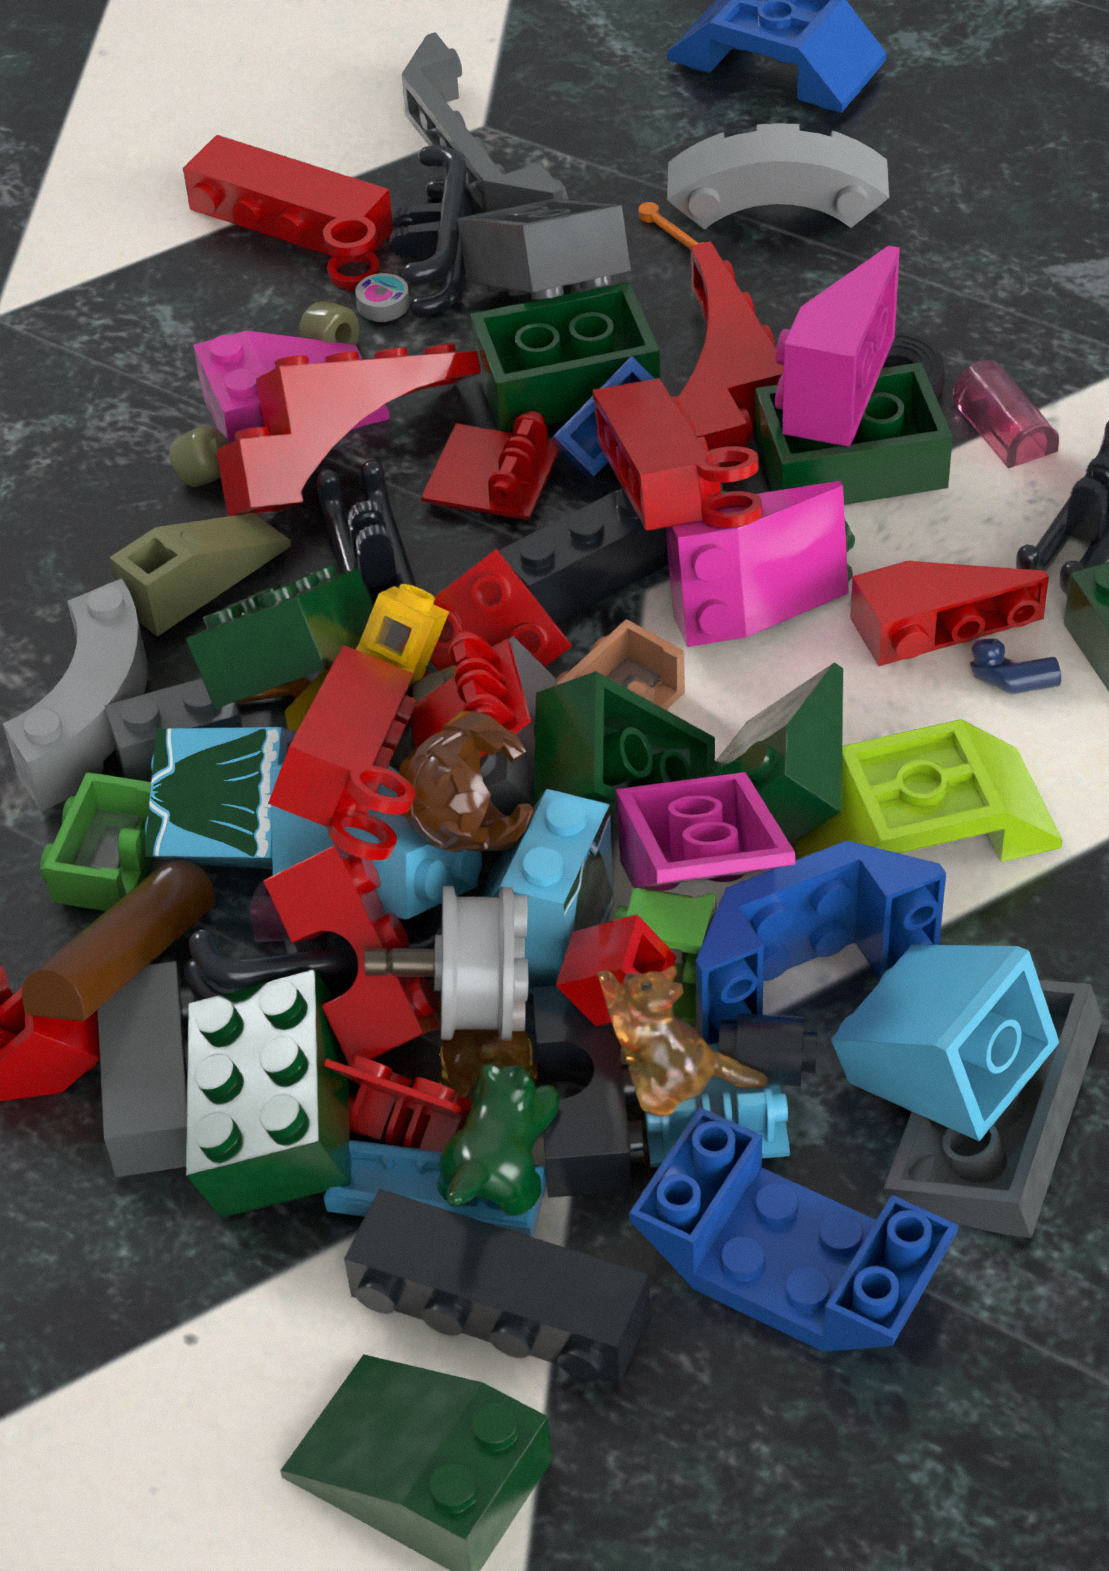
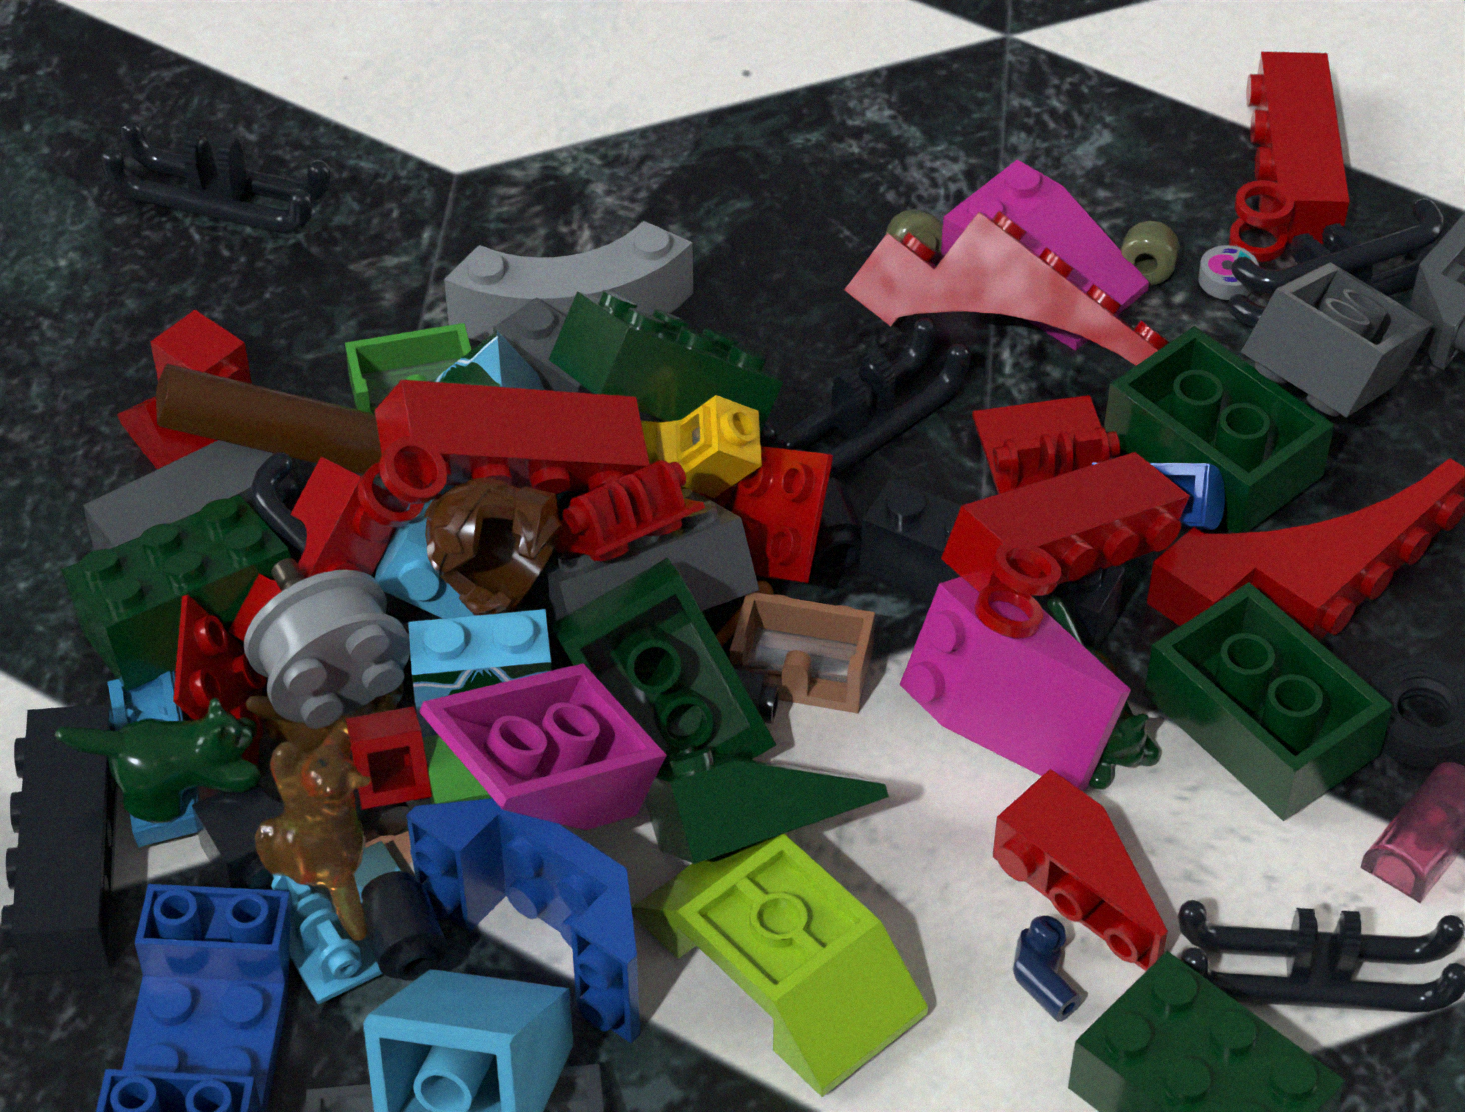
camera: 60 degrees right, 0 degrees up
(191, 563) = (761, 285): olive slope -> none
(838, 352) = (1307, 611): dark pink slope -> none

